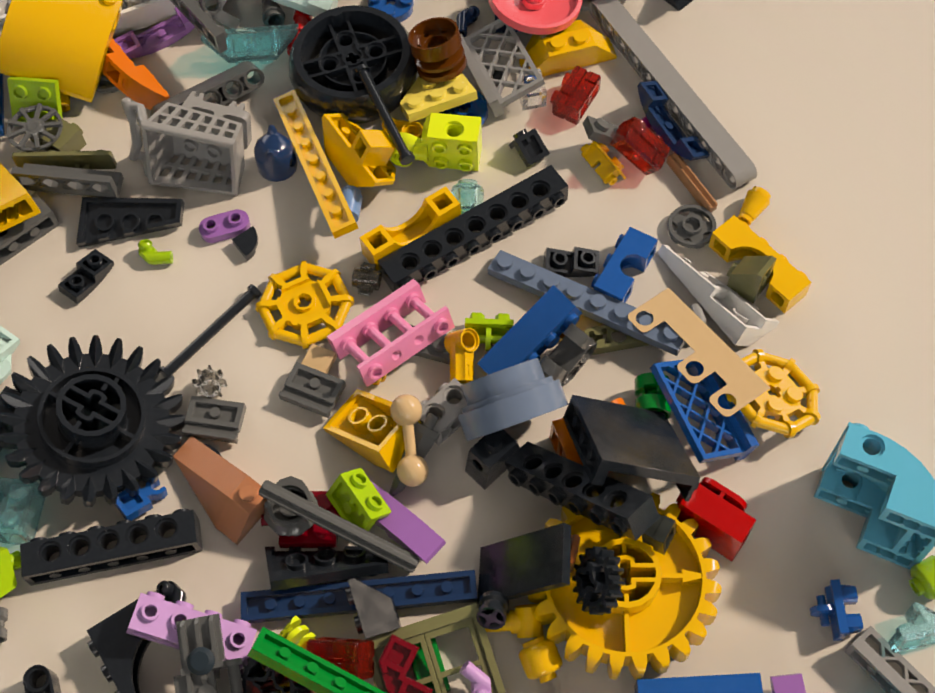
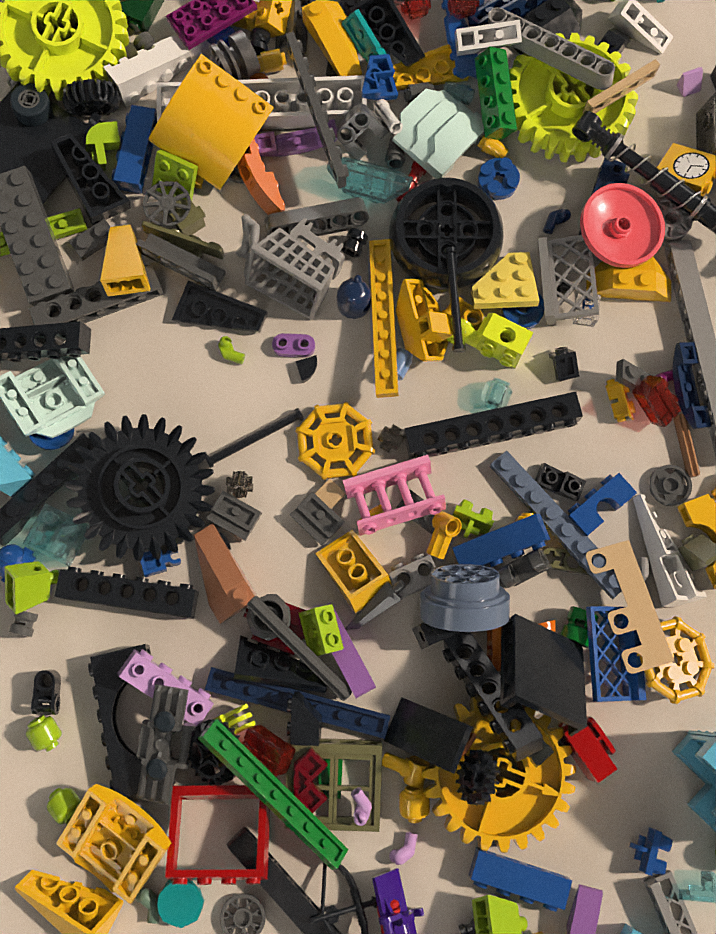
camera: 15 degrees right, 15 degrees up
(89, 274) = (172, 351): black slope -> none
(171, 591) = (162, 648): black arm -> none
(257, 105) = (354, 243): none -> black wheel
(407, 411) = (371, 619): tan piece -> none
(434, 212) = (460, 403): yellow arch -> none
(437, 49) = (520, 251): reddish brown wheel -> none
(492, 610) = (391, 757): black wheel -> none
(575, 94) = (622, 328): clear red brick -> none

